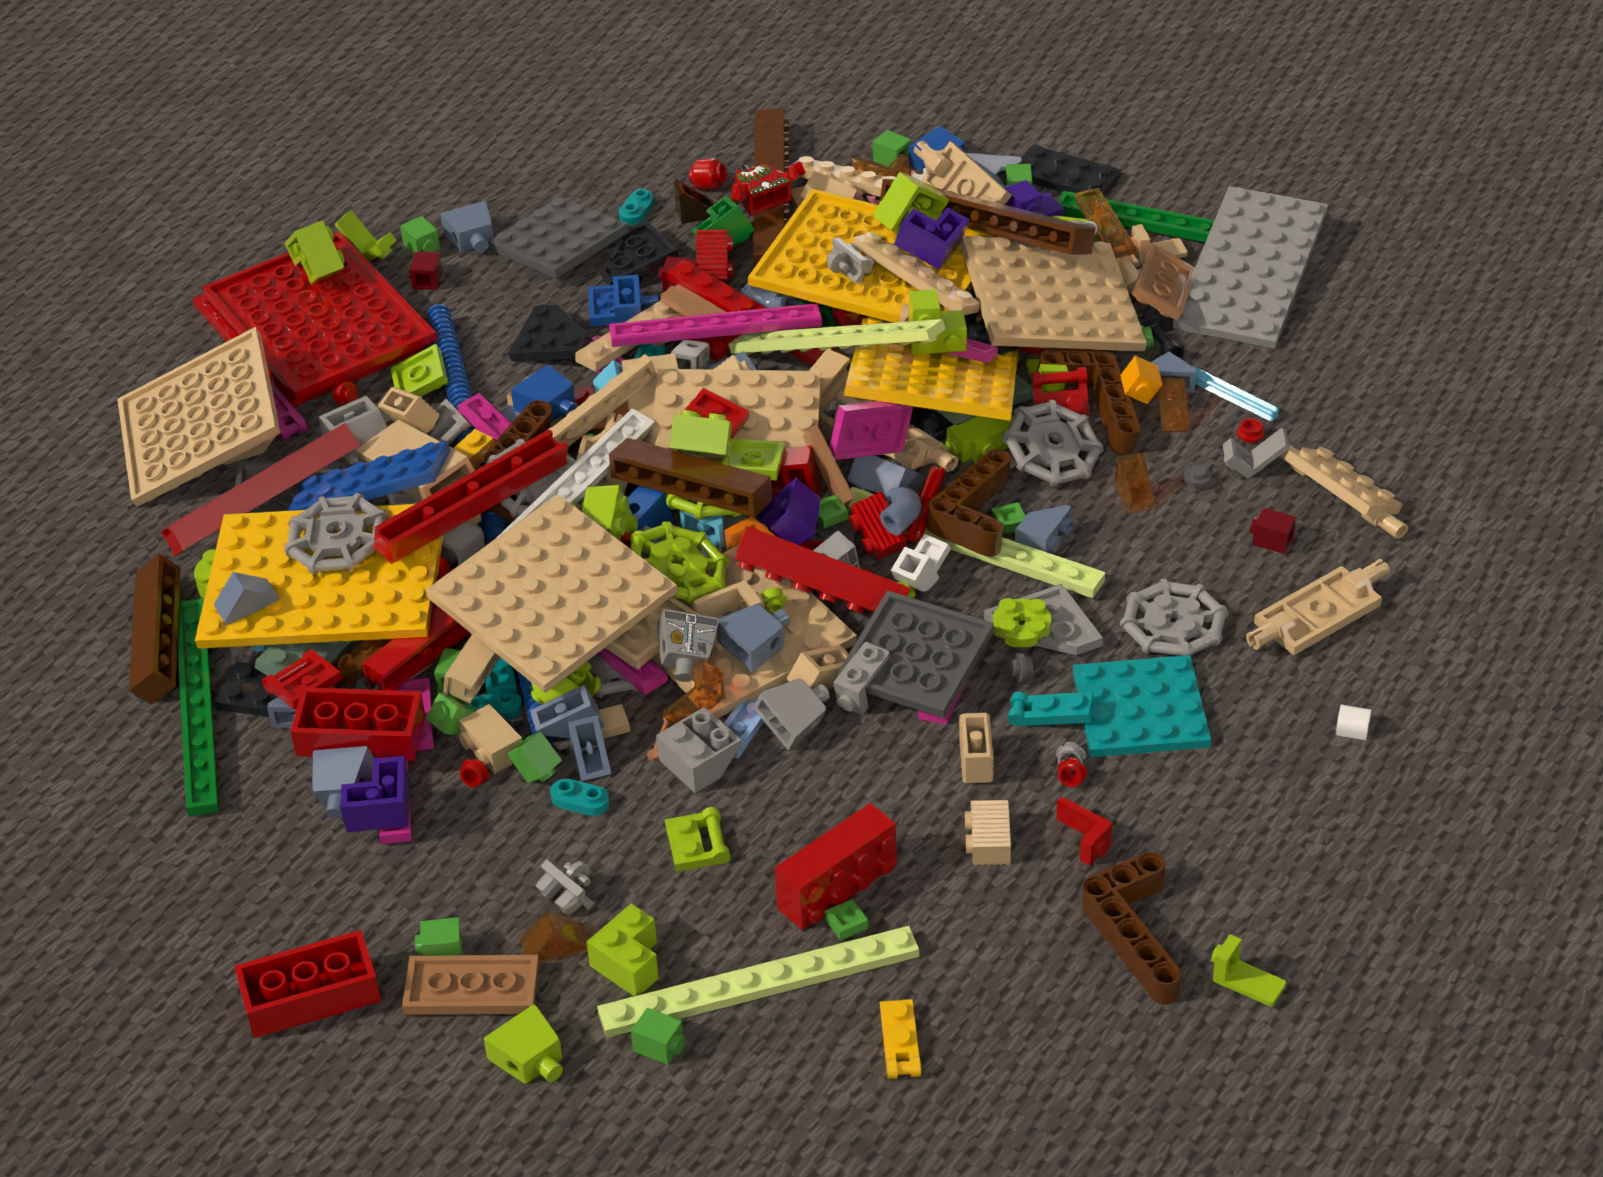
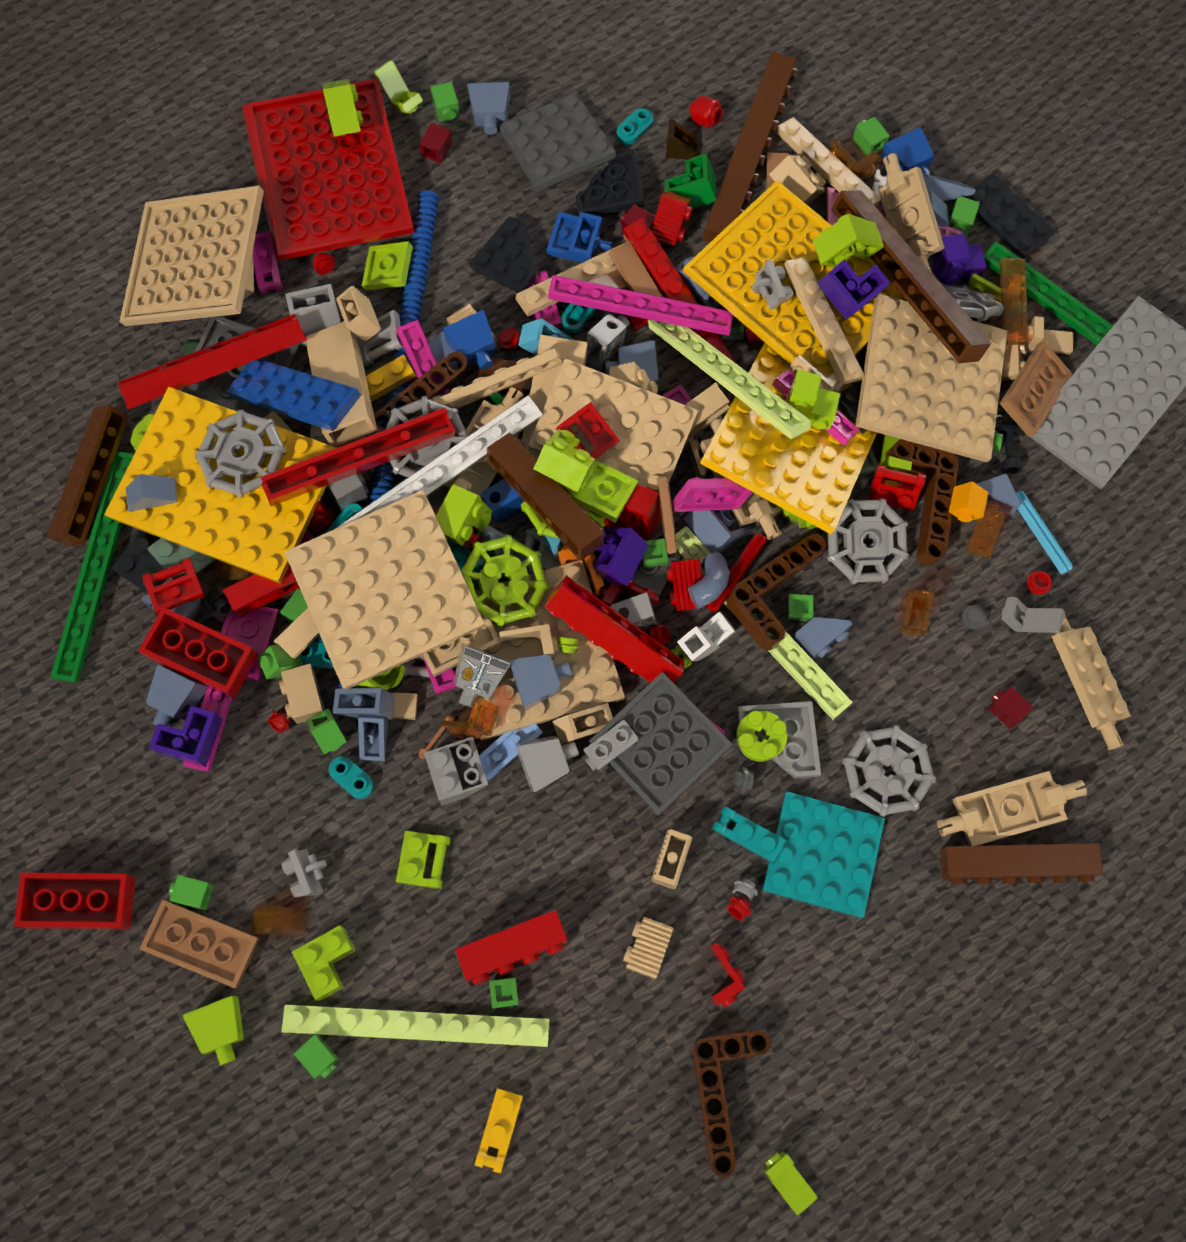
camera: 15 degrees right, 30 degrees up
(764, 187) = (739, 155): red torso -> none
(1351, 645) = (1021, 862): none -> reddish brown brick
(1353, 722) = (987, 942): white brick -> none

